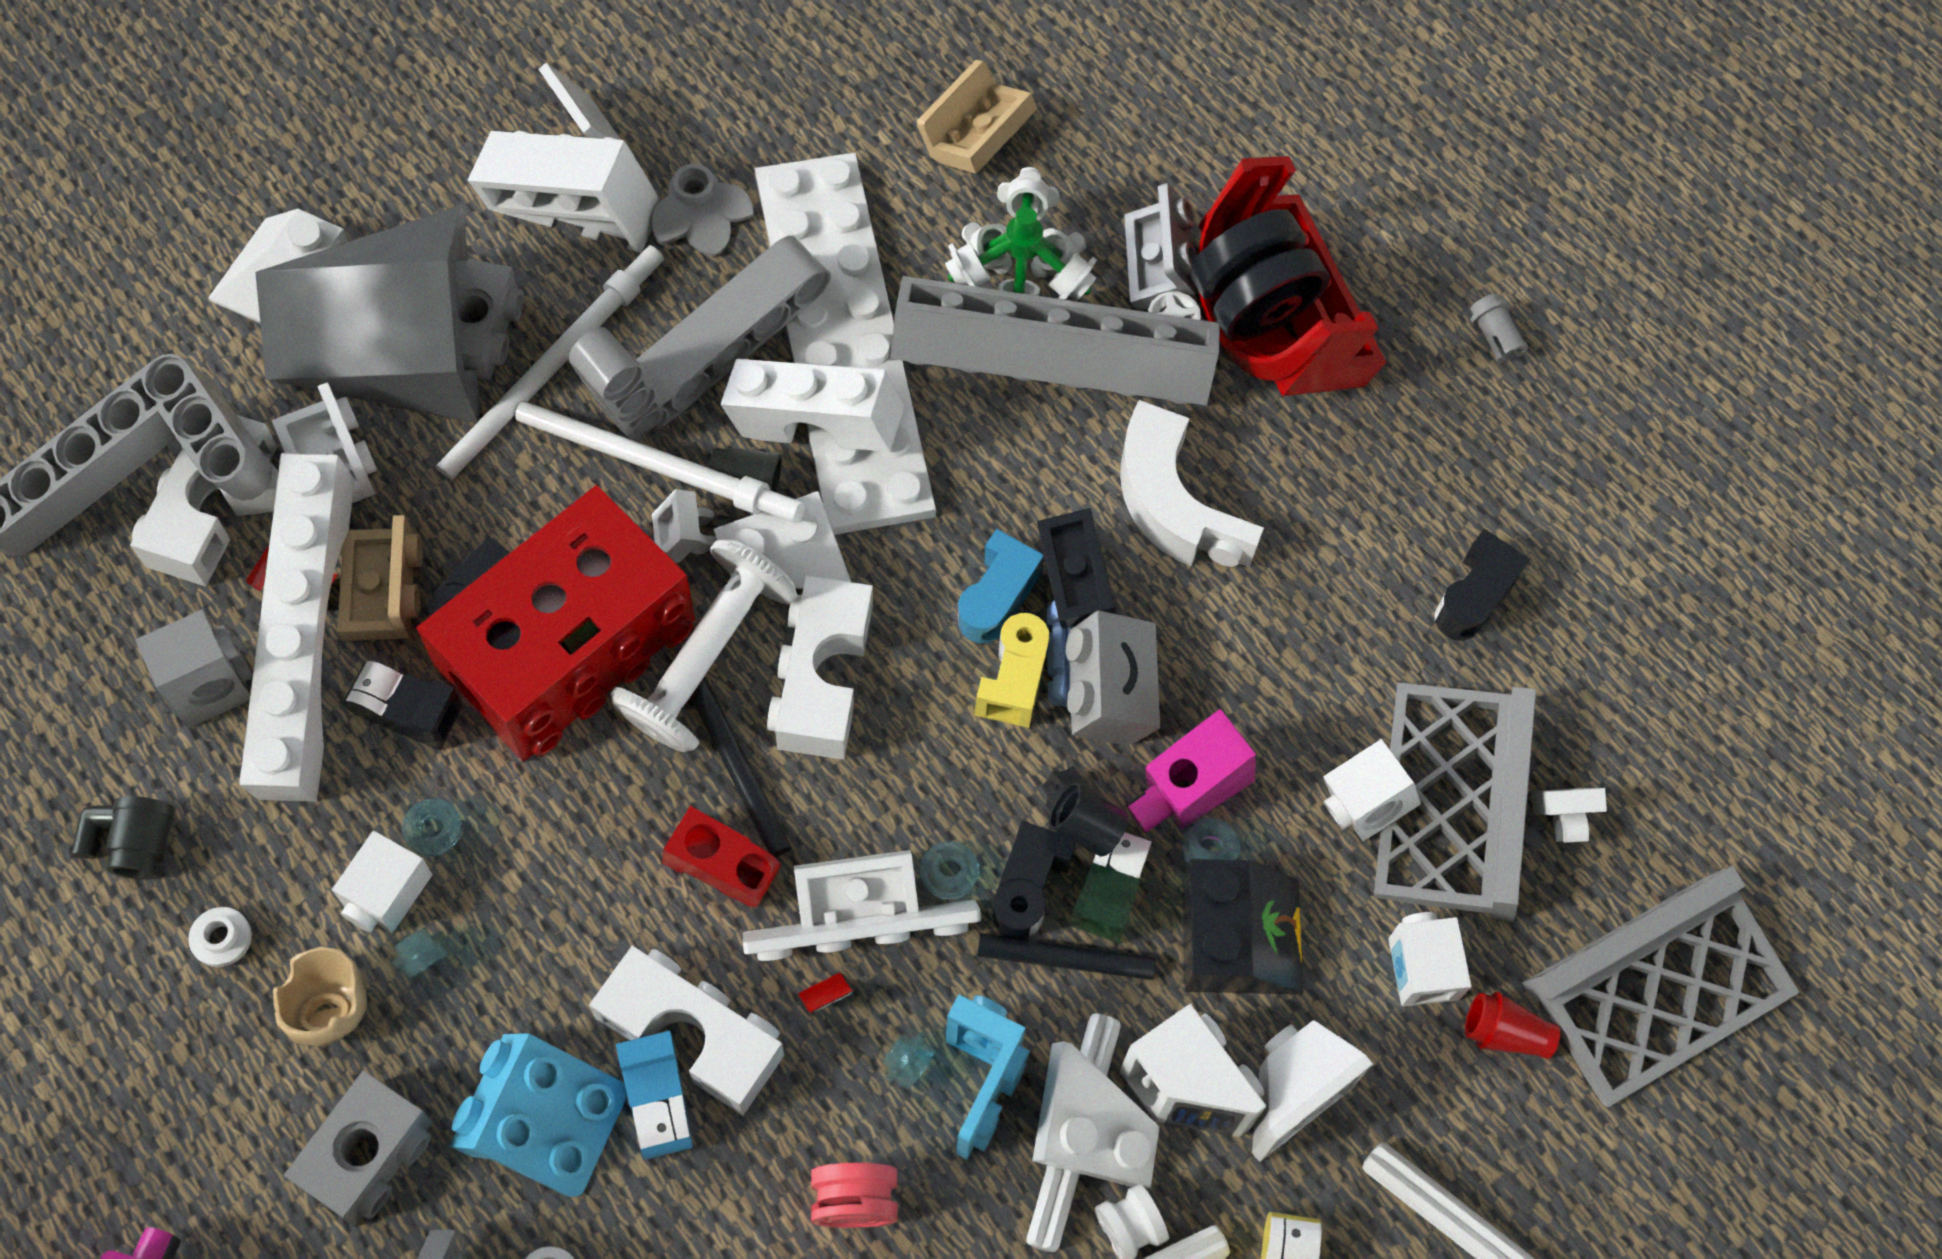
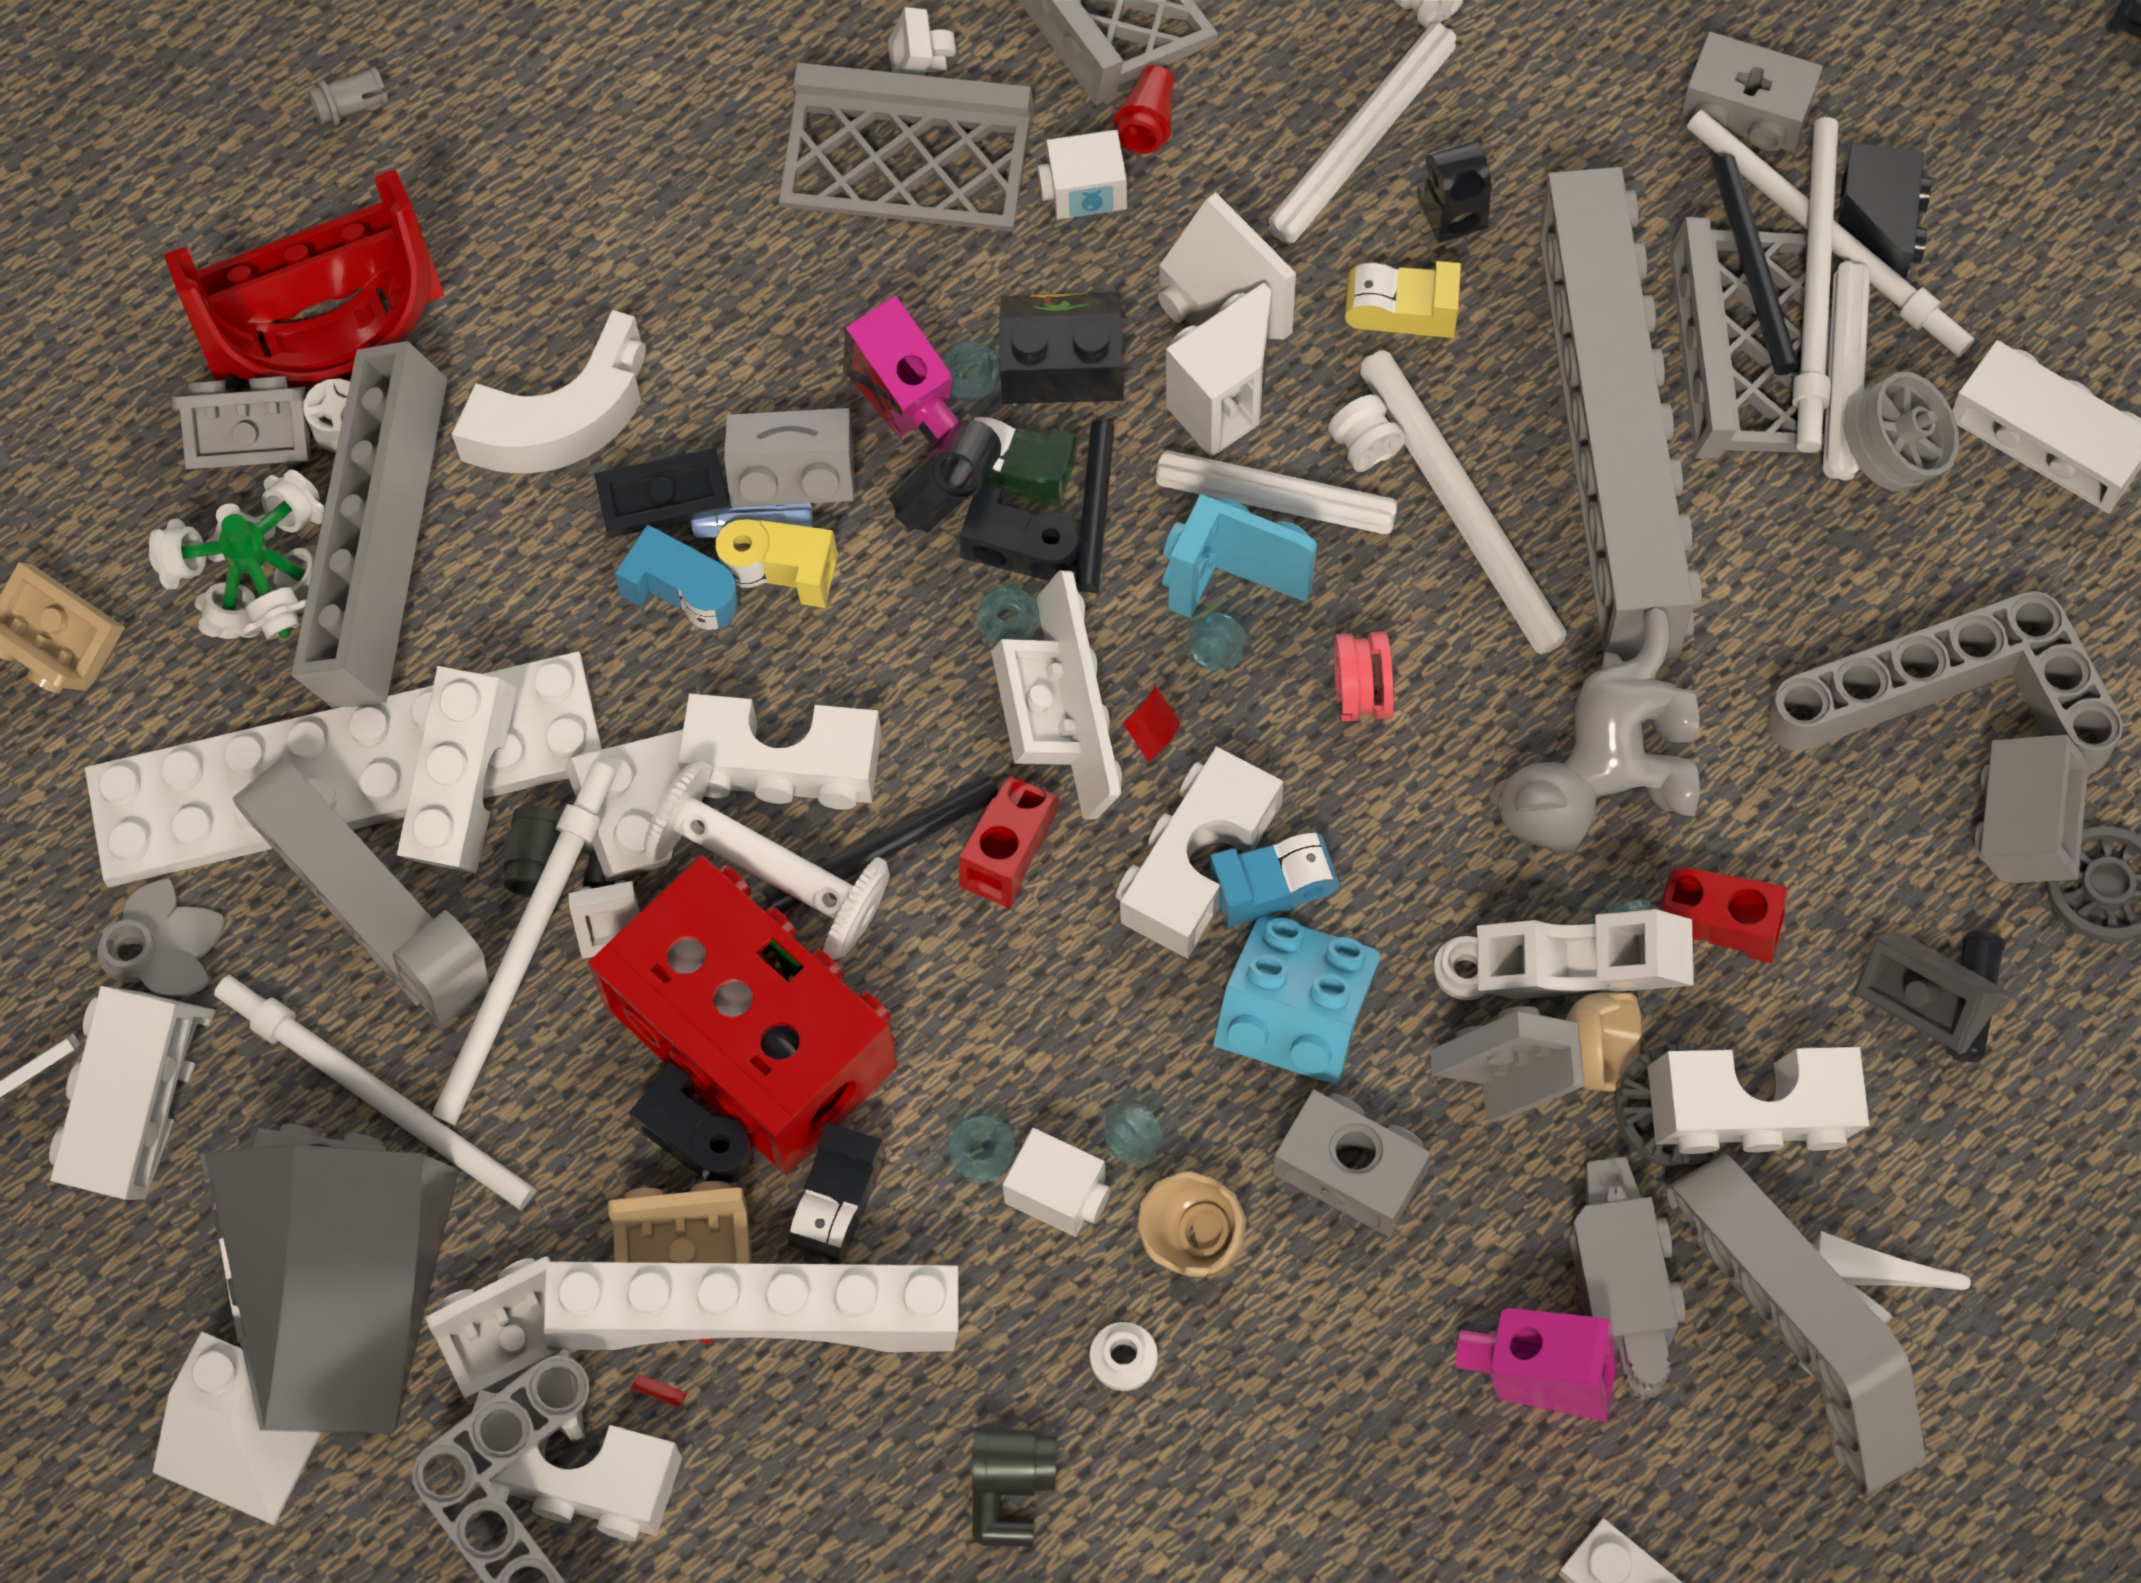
camera: 85 degrees left, 0 degrees up
(196, 668) = (812, 1410): light grey brick -> none
(1092, 1123) = (1272, 464): white wing -> none
(1259, 275) = (311, 294): black wheel -> none
(1370, 791) = (910, 219): white brick -> none
(1473, 600) = (671, 117): black leg -> none

